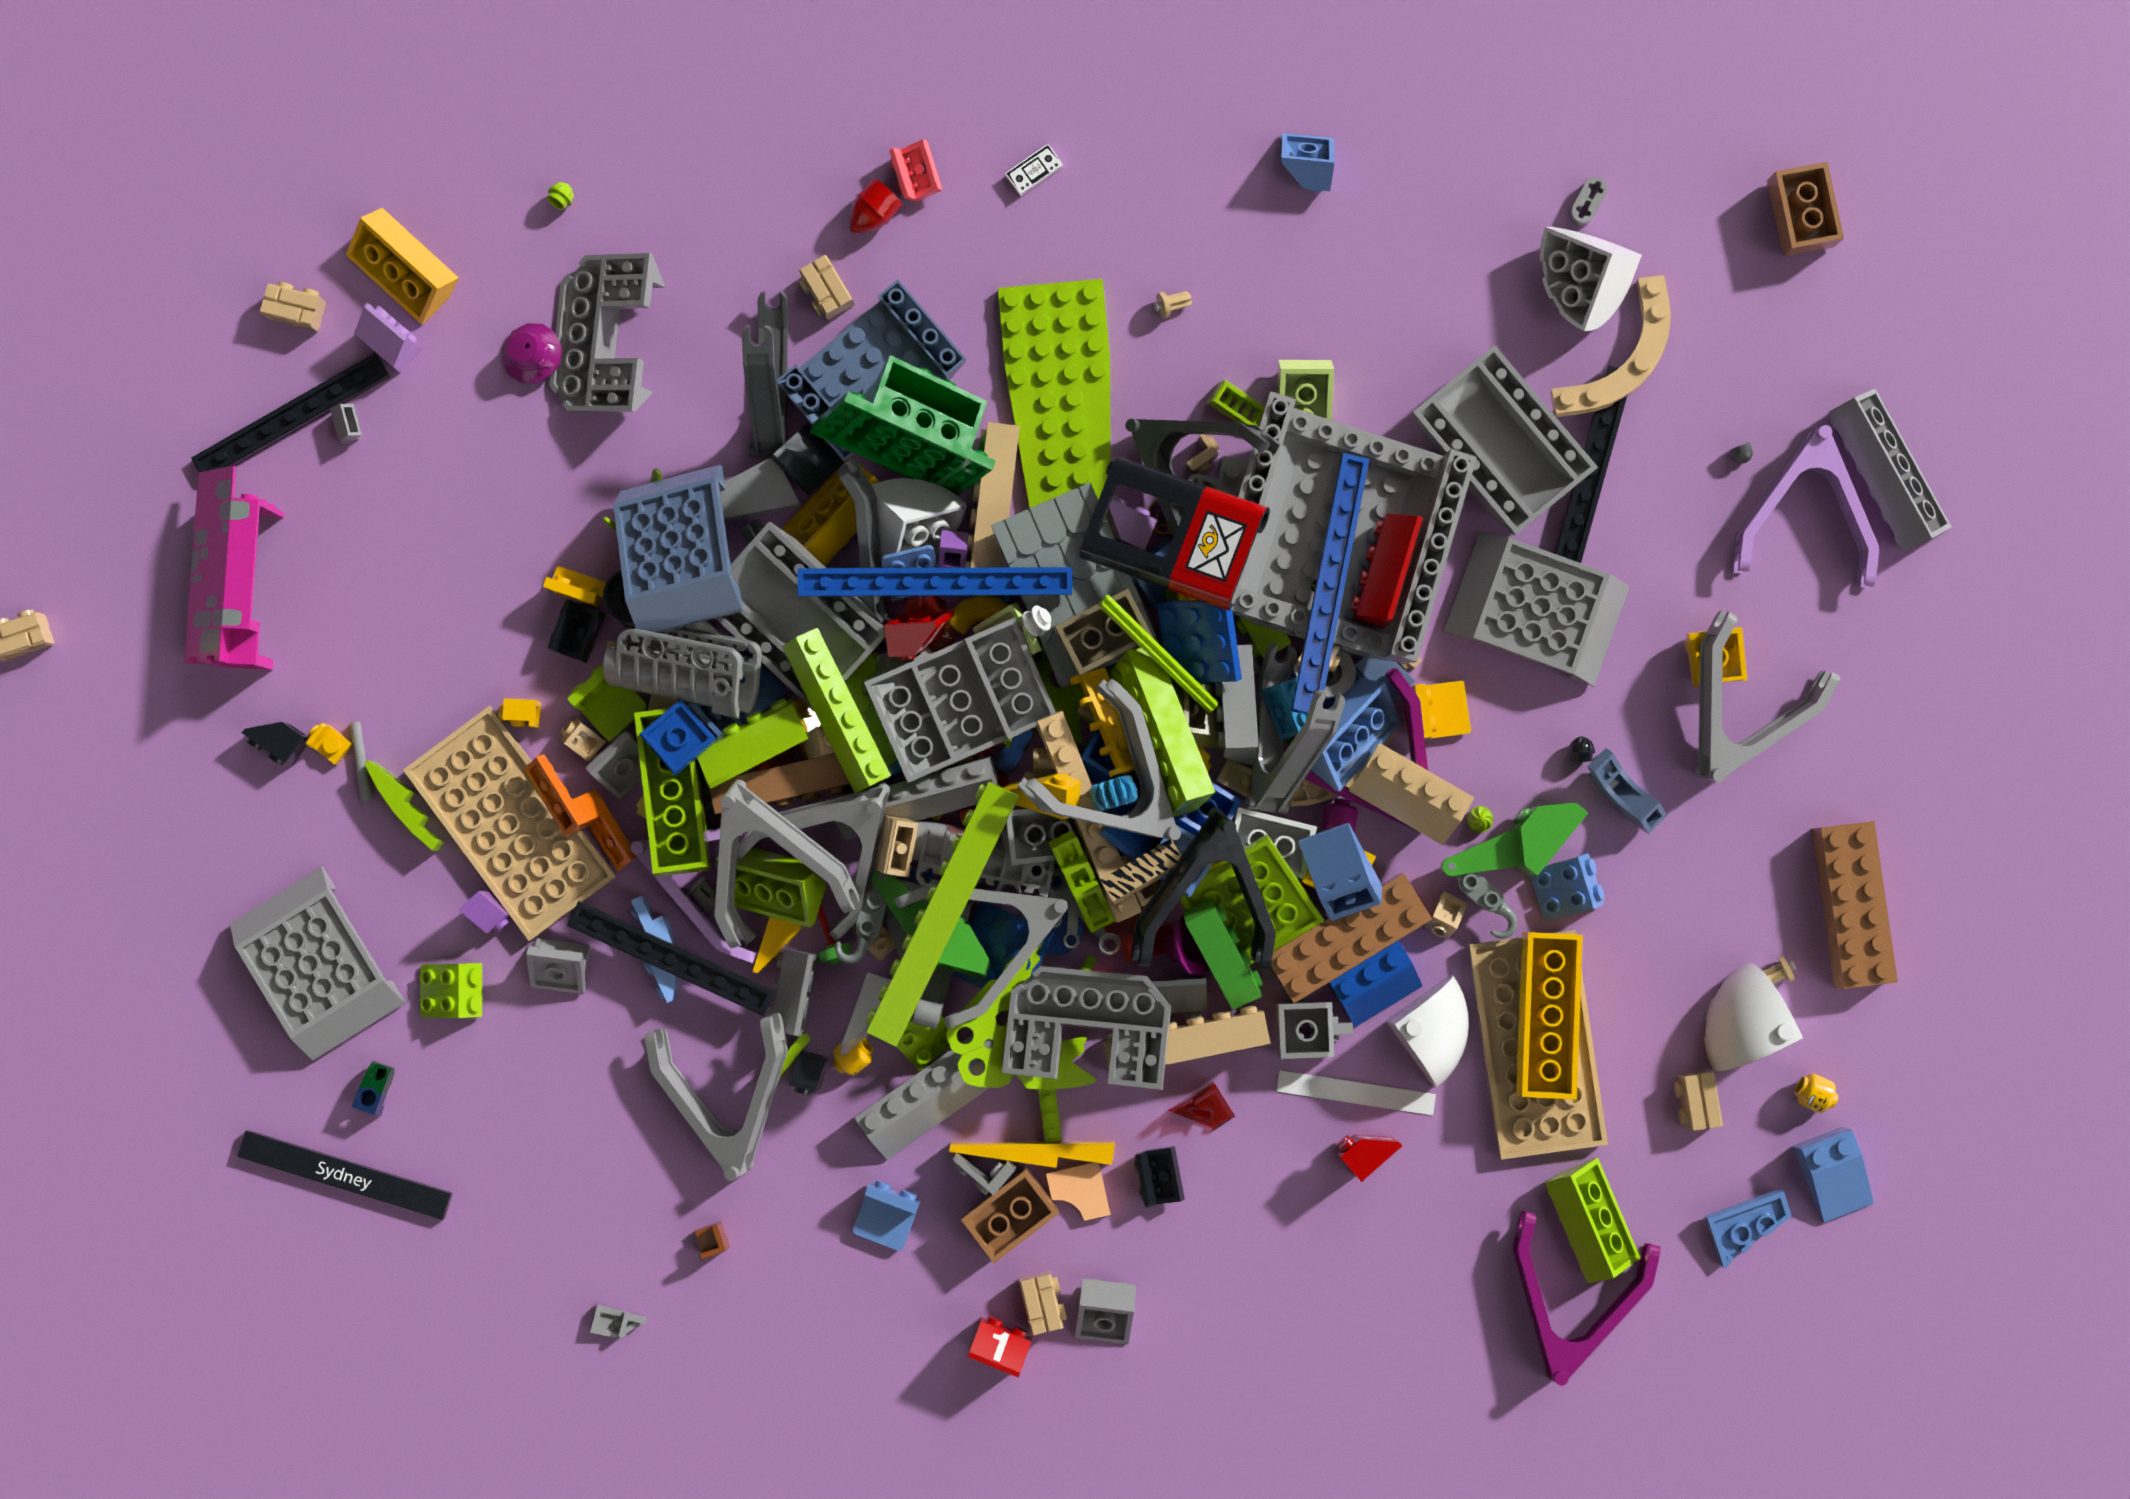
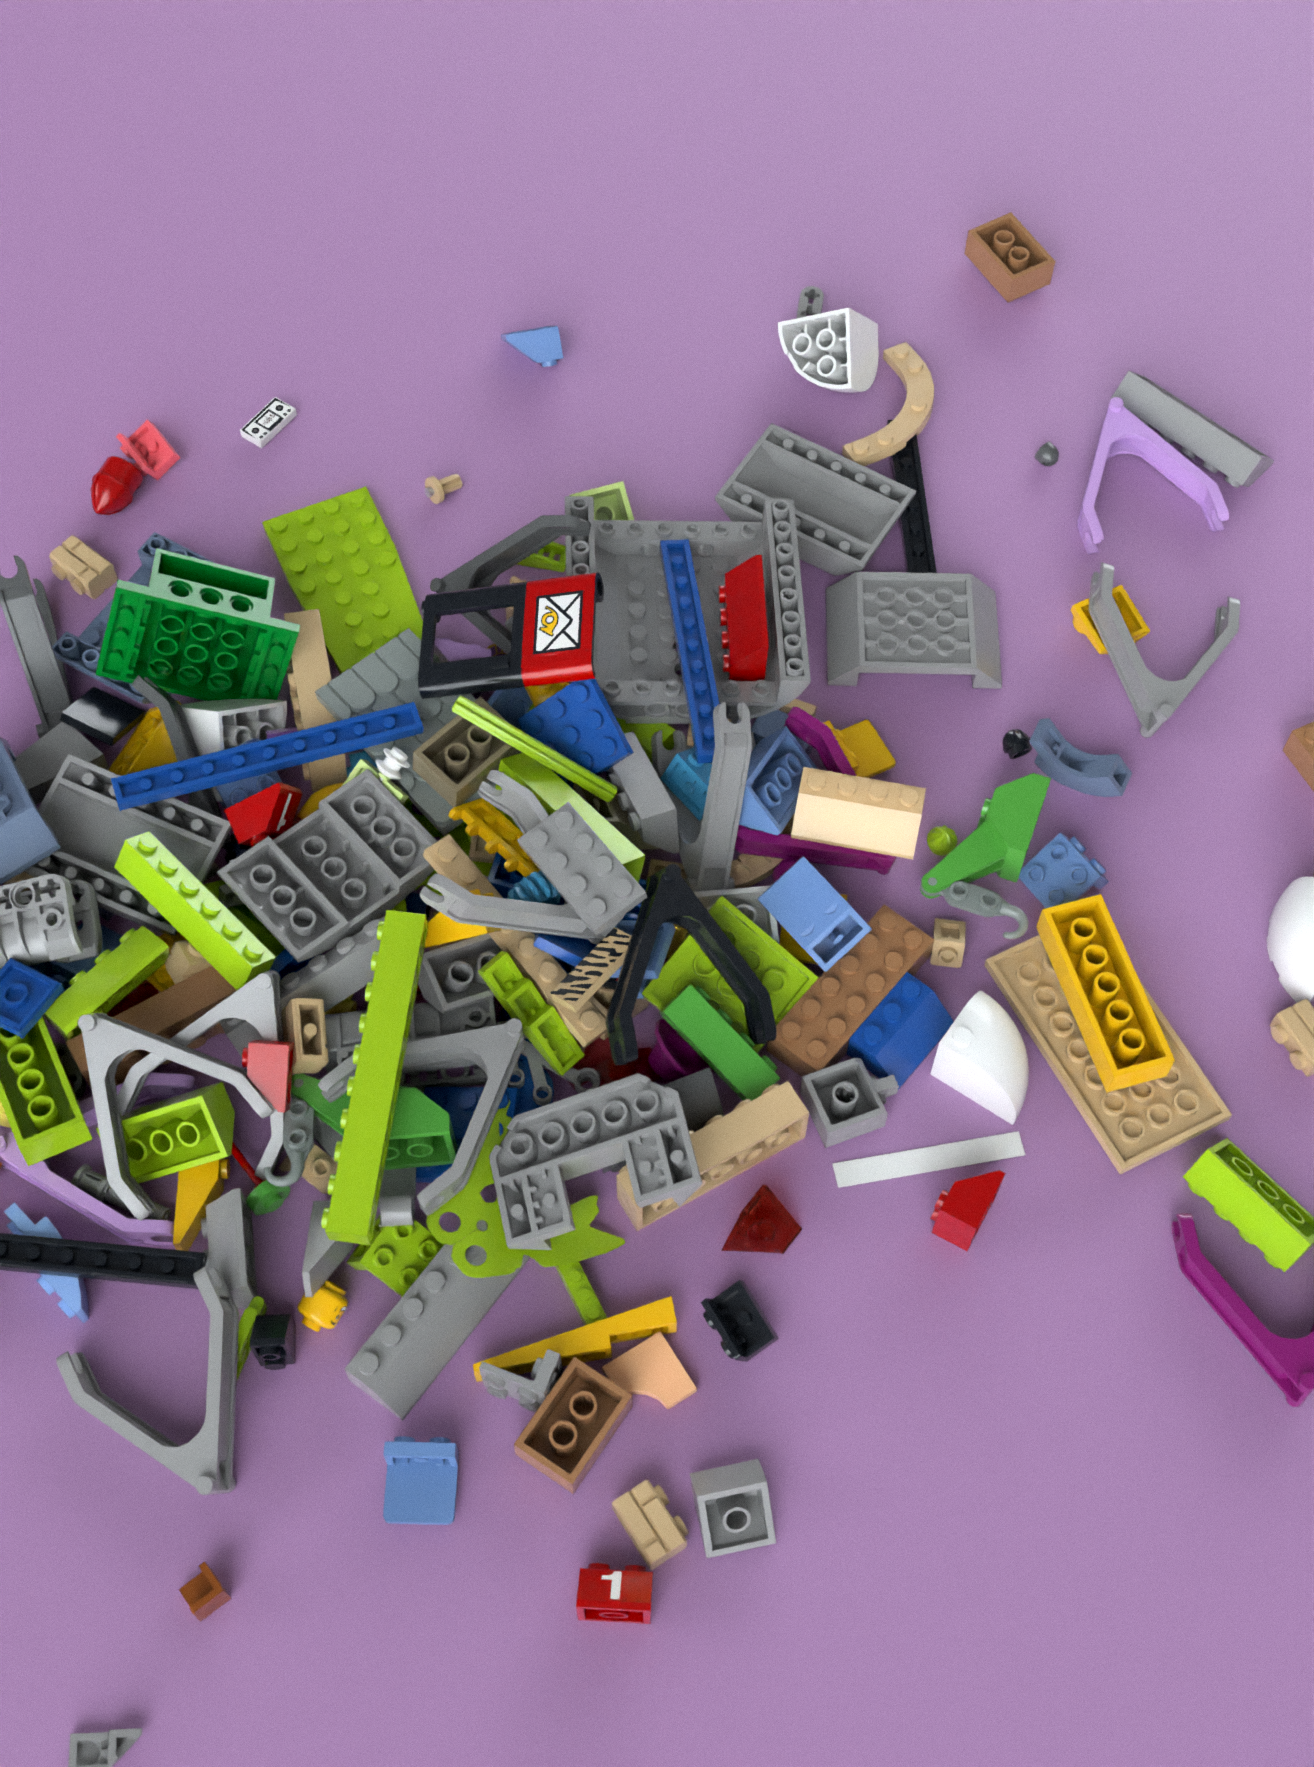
camera: 20 degrees left, 25 degrees down
(860, 874) = (270, 1070): none -> slope
(1157, 793) = (582, 868): none -> light grey plate

